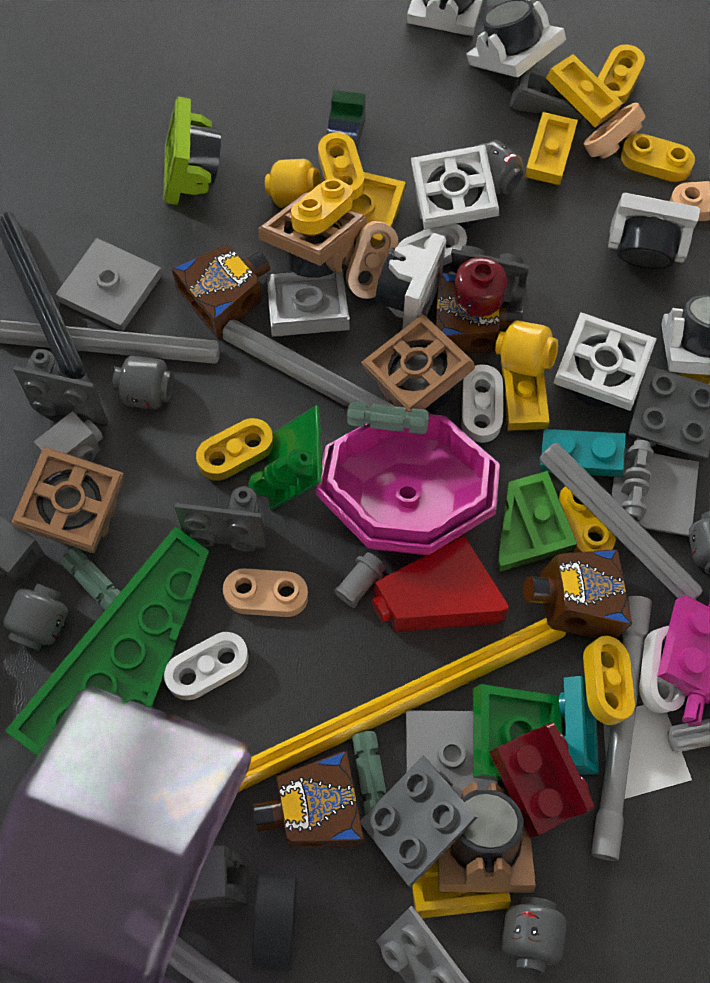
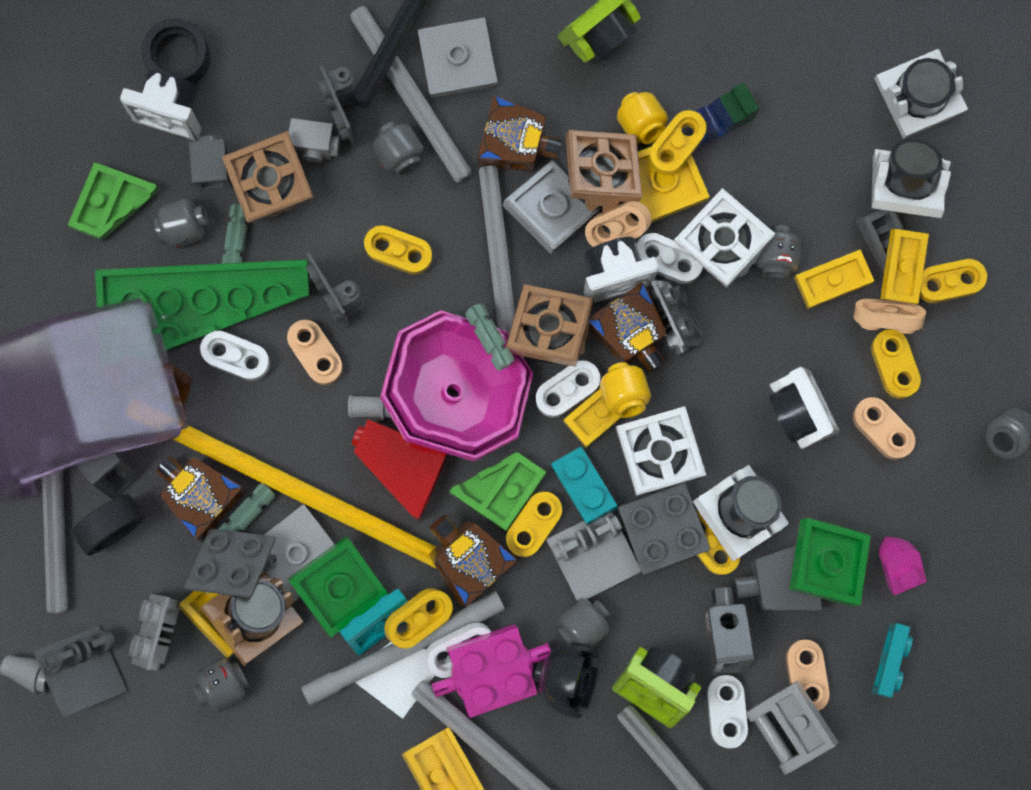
camera: 50 degrees right, 15 degrees up
(293, 462) = (417, 296): green hinge -> none
(321, 207) = (623, 161): yellow plate -> none
(480, 286) = (641, 322): dark red head -> none
(542, 779) = (315, 620): dark red bracket -> none
(620, 522) = (542, 548): light grey axle -> none

